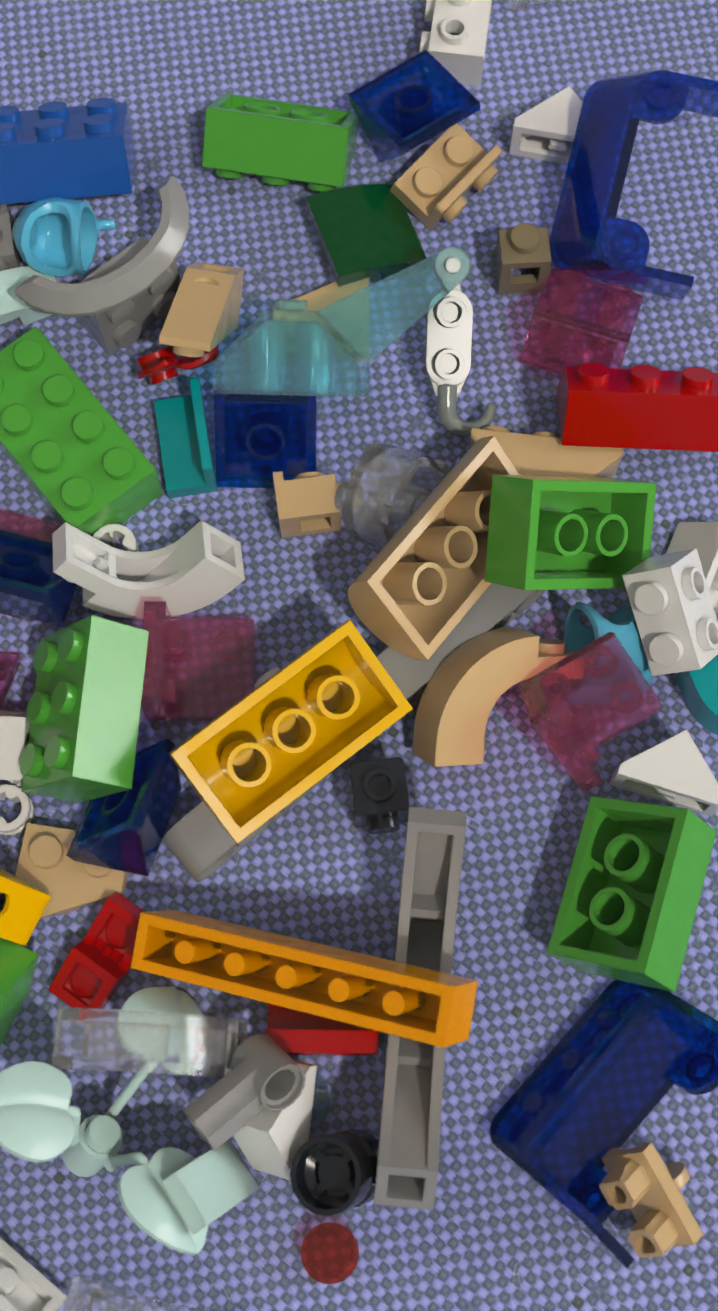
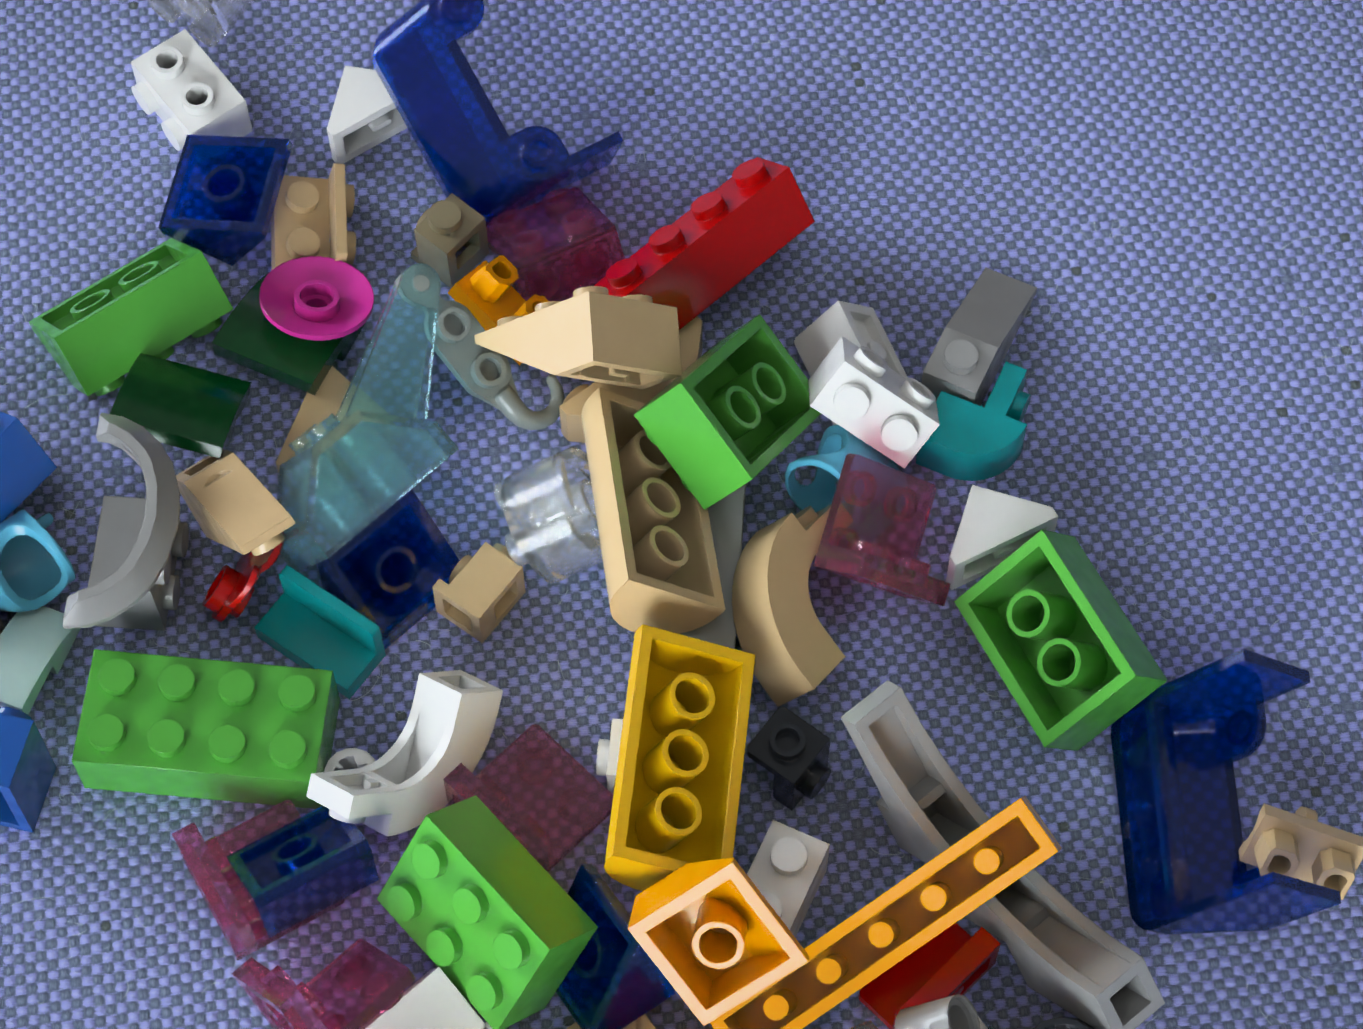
camera: 45 degrees left, 10 degrees down
(177, 868) = (714, 936): none -> light orange slope
(241, 218) = (182, 404): none -> dark green slope
(276, 875) = (789, 871): none -> white brick
(393, 222) = (316, 298): none -> dark pink dish
(502, 334) = (490, 294): none -> light orange hips
(521, 401) = (594, 338): none -> tan slope

